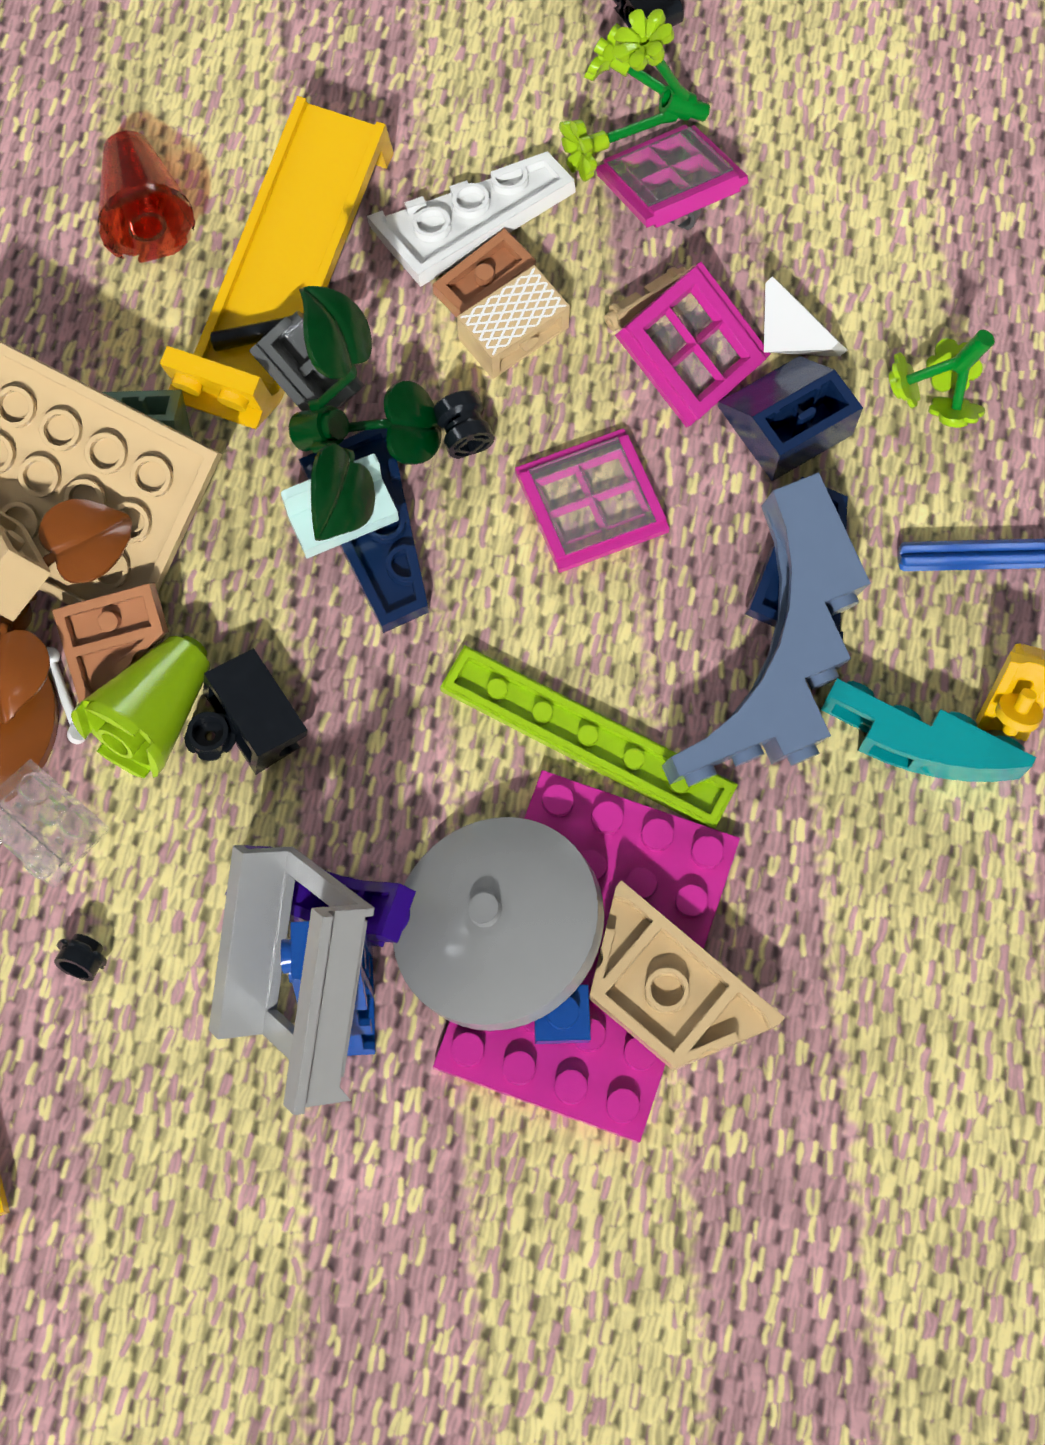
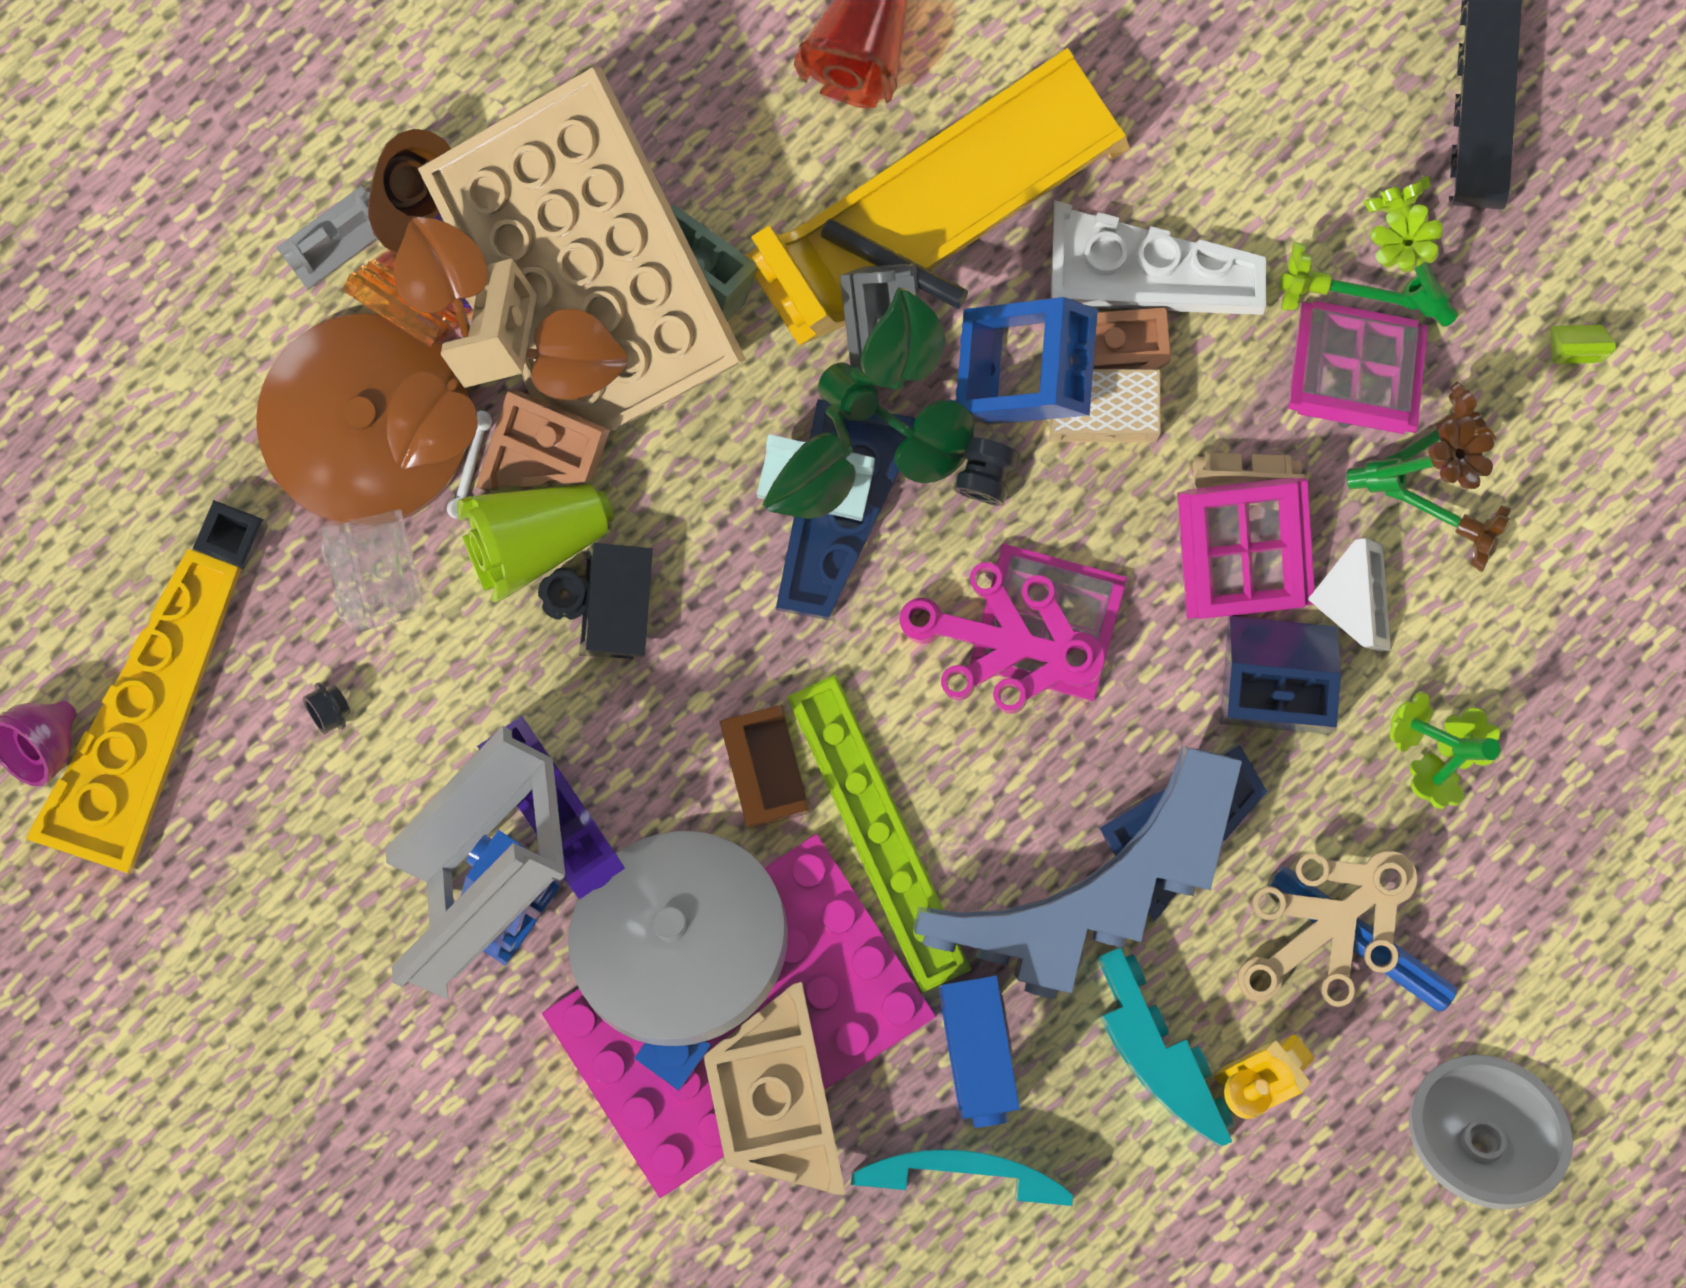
camera: 35 degrees right, 10 degrees up
(462, 750) = (764, 767): none -> reddish brown panel
(468, 295) = (1063, 386): none -> blue window
(575, 526) = (1010, 643): none -> dark pink plant
(794, 149) = (1458, 457): none -> reddish brown plant
(796, 830) = (979, 1051): none -> blue window
(808, 67) = (1580, 344): none -> lime slope
(909, 907) = (1029, 1187): none -> teal slope
(971, 552) = (1334, 920): none -> tan plant

